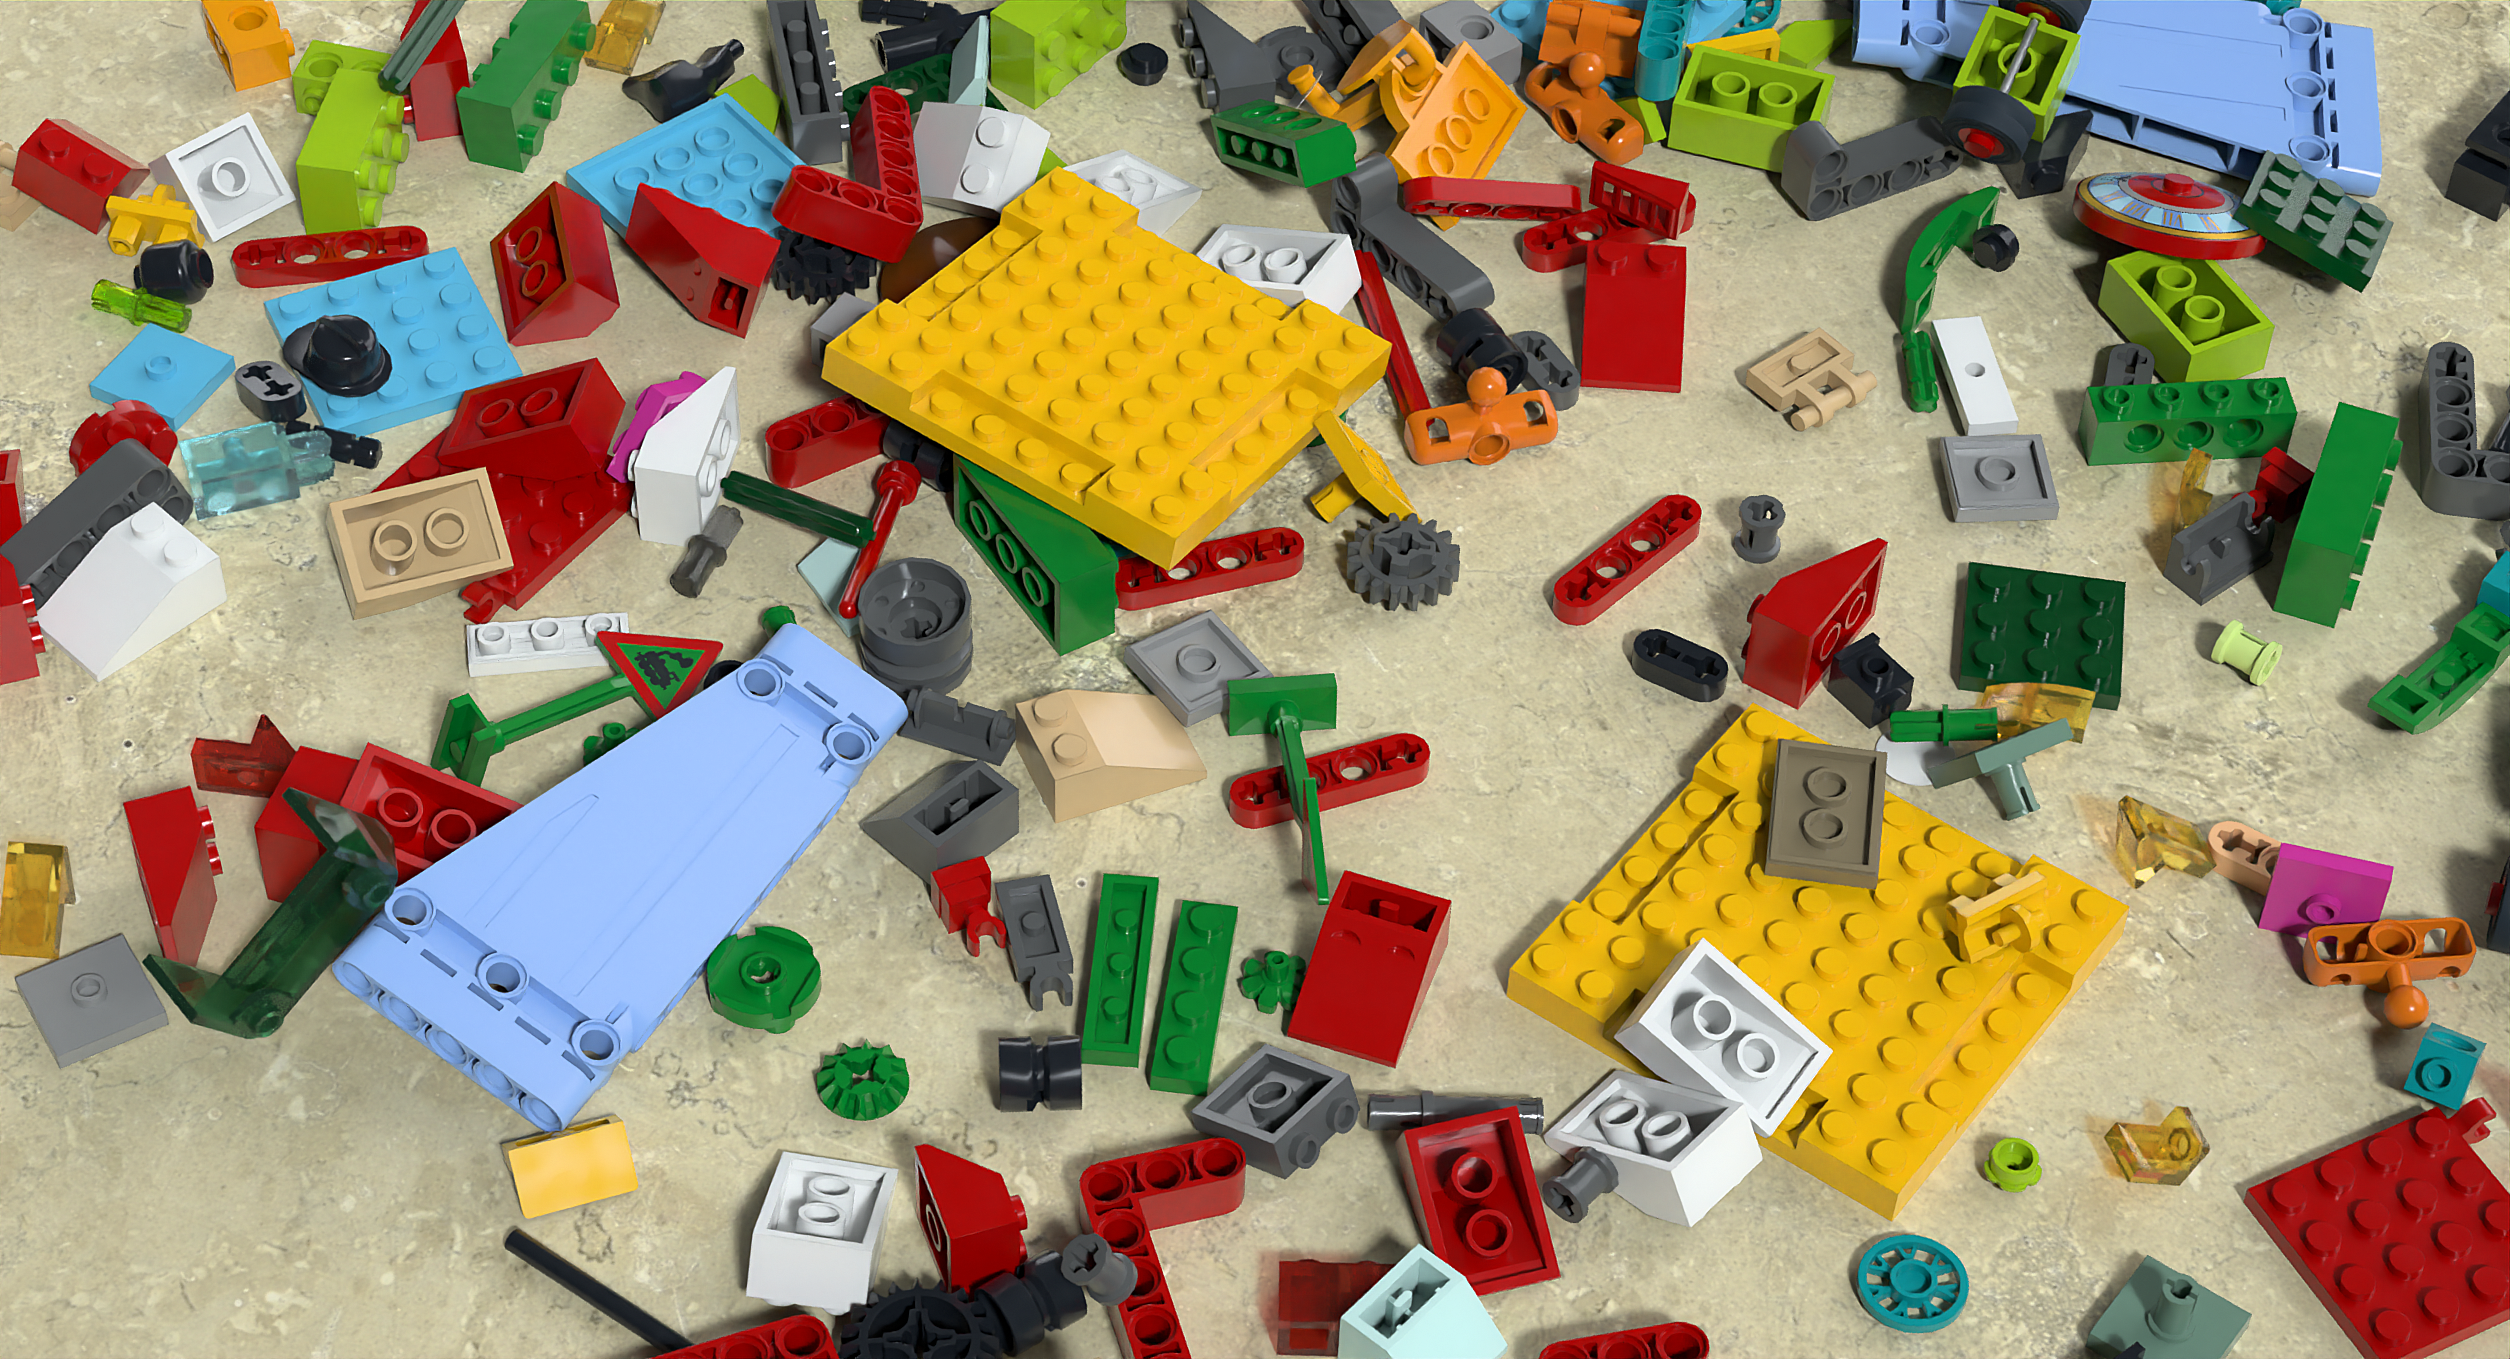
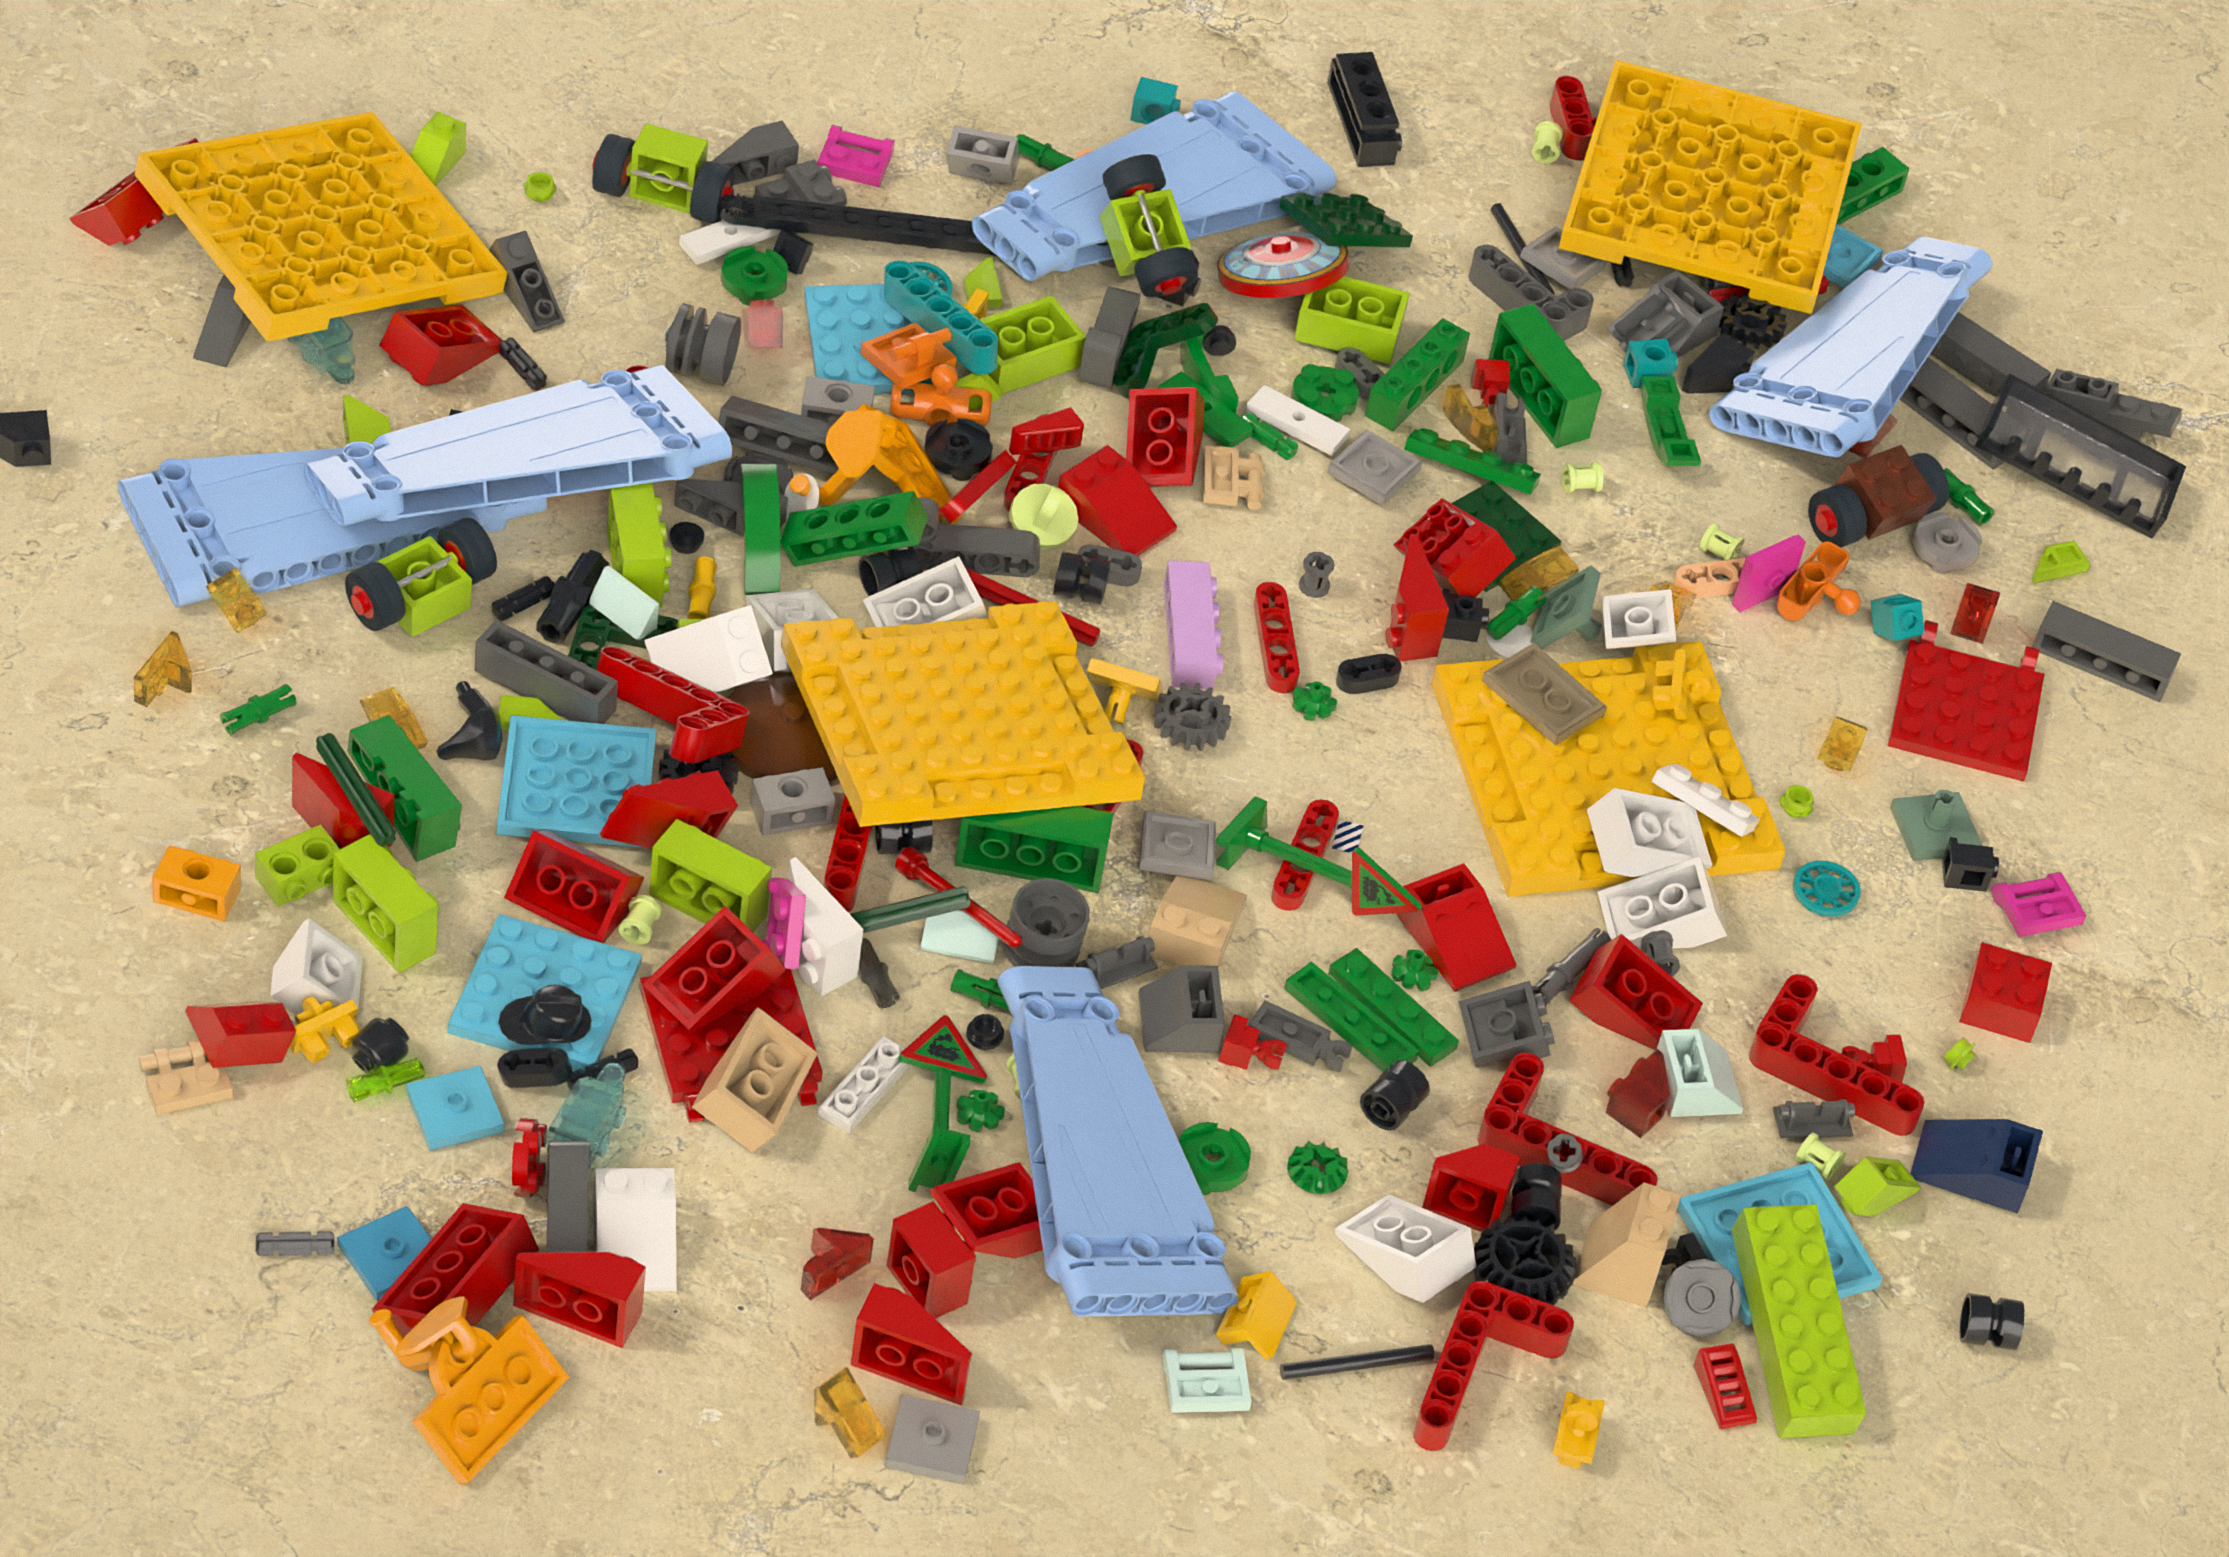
camera: 55 degrees left, 0 degrees up
(301, 934) = (1029, 1301): clear green windscreen -> none
(331, 252) = (433, 969): red beam -> none
(410, 1188) = (1207, 1389): none -> light aqua plate
(567, 342) = (638, 924): none -> yellowish green bush
(660, 323) = (706, 874): none -> lime brick
(1084, 113) = (702, 588): none -> yellow pin
(1202, 86) = (761, 528): none -> green slope
(1277, 207) = (884, 571): none -> black wheel
(1412, 803) = (1347, 836): none -> sticker
(1483, 426) = (1131, 617): orange piece -> none
(1535, 277) = (1046, 513): none -> yellowish green tile
(1539, 478) = (1191, 624): none -> lavender brick
(1568, 157) = (958, 462): none -> black plate
(1576, 647) = (1314, 700): none -> green plant
(1778, 286) = (1165, 434): none -> red slope
(1850, 1057) = (1706, 799): none -> white plate
(1876, 300) = (1219, 420): none -> green tile
(1916, 192) = (1154, 334): none -> dark green beam
(1952, 611) = (1459, 549): none -> red slope
(2055, 817) = (1638, 619): none -> white slope
(2057, 355) = (1338, 383): none -> green plate
(2130, 549) = (1485, 464): none -> green plate
(2332, 833) = (1721, 543): none -> yellowish green bush

